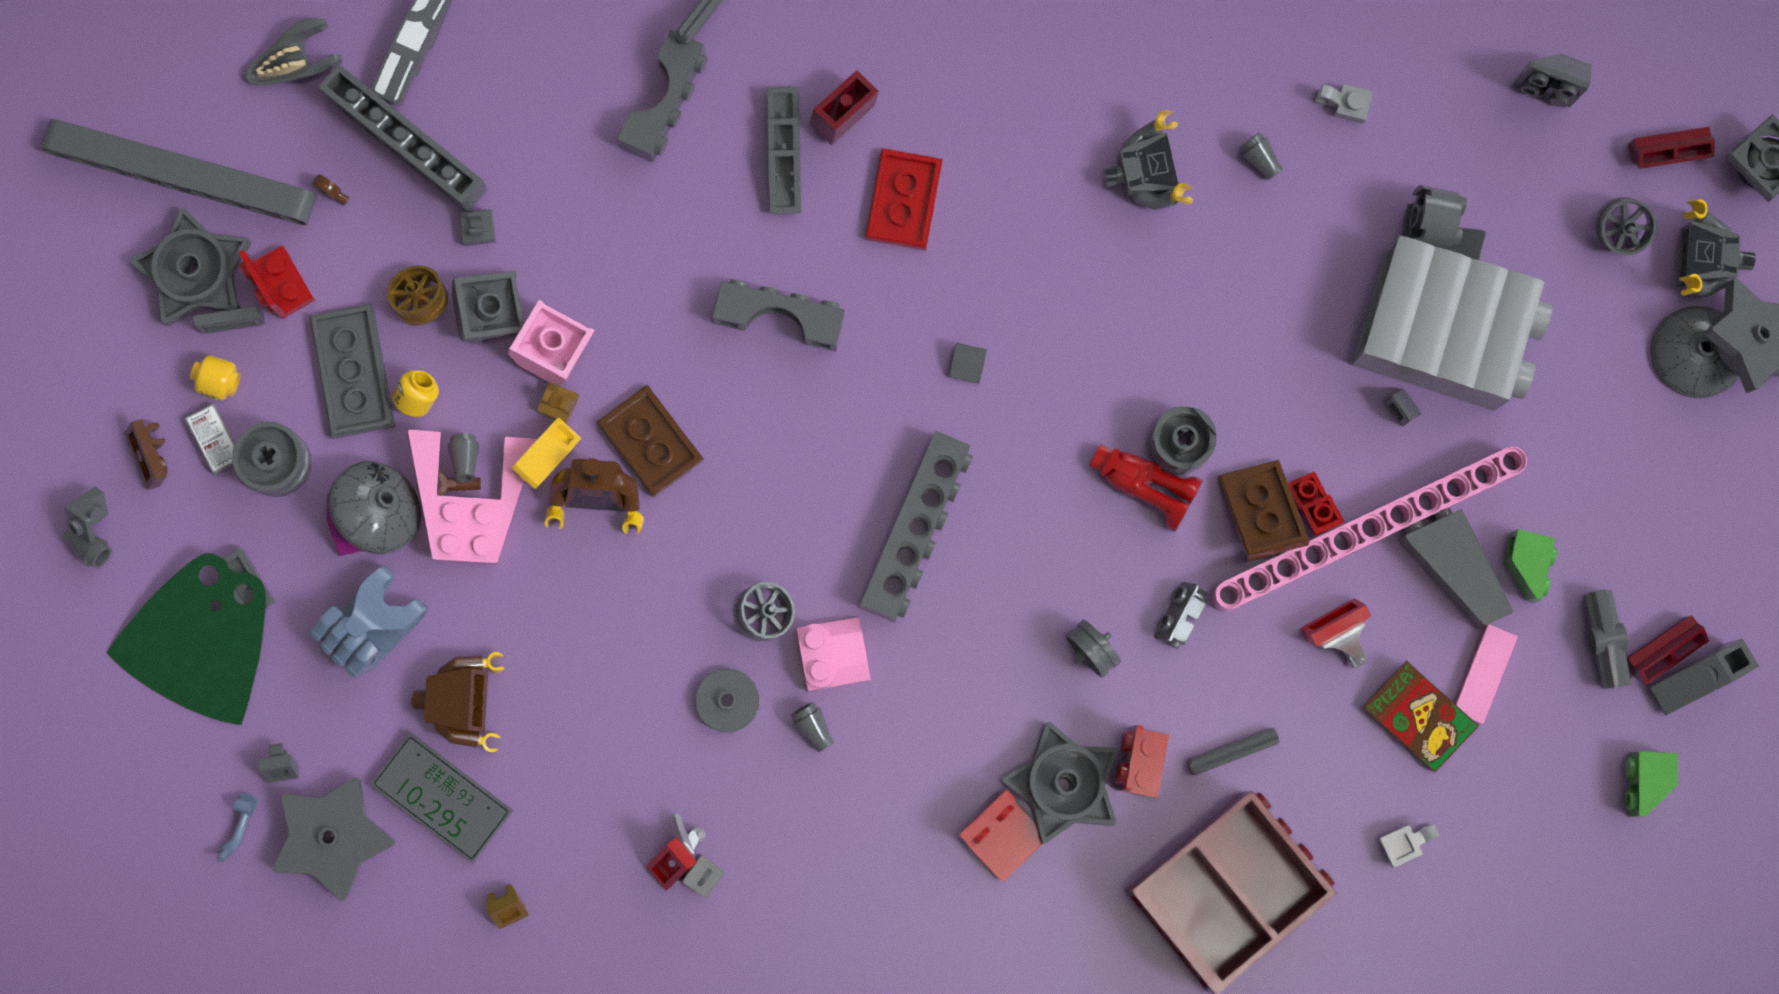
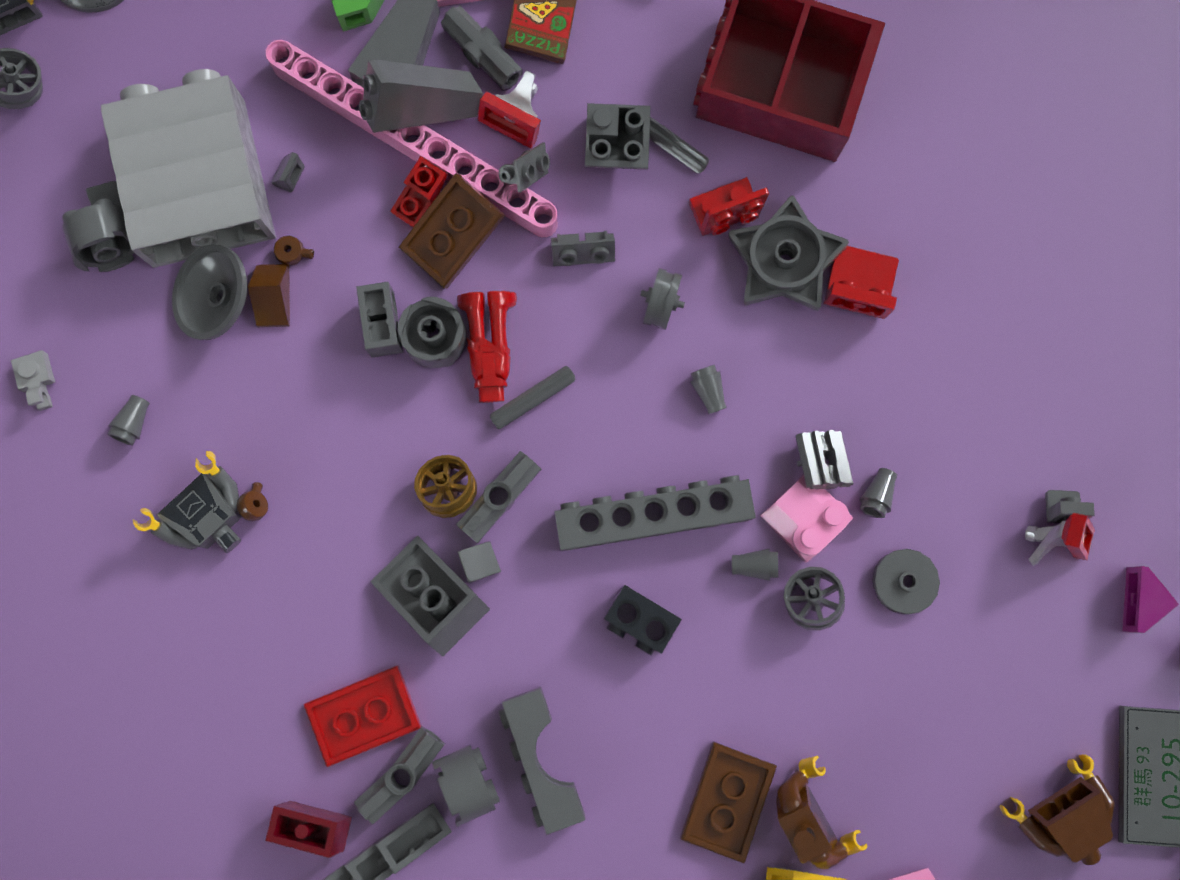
camera: 120 degrees left, 0 degrees up
(581, 888) = (1144, 600): none -> magenta slope
(799, 243) = (464, 784): none -> dark grey brick
(819, 587) = (756, 564): none -> dark grey cone
(834, 182) = (386, 790): none -> dark grey piece
(841, 469) = (646, 612): none -> black brick
(863, 681) = (813, 449): none -> piece
(965, 307) = (430, 596): none -> dark grey slope
(992, 642) = (709, 388): none -> dark grey cone
(1003, 392) = (514, 480): none -> dark grey piece
(1046, 372) = (445, 486): none -> pearl gold wheel
(1077, 491) = (532, 397): none -> dark grey axle
(1129, 213) = (253, 504): none -> reddish brown piece
(1222, 403) = (379, 319): none -> dark grey brick
(1260, 701) = (617, 136): none -> dark grey slope
(1279, 607) = (527, 168): none -> dark grey hinge
(1302, 330) = (270, 295): none -> reddish brown slope
(1326, 373) = (297, 250): none -> reddish brown piece
(1330, 279) = (209, 292): none -> dark grey dish
(1397, 549) = (416, 95): none -> dark grey slope
(1418, 640) = (481, 47): none -> dark grey piece

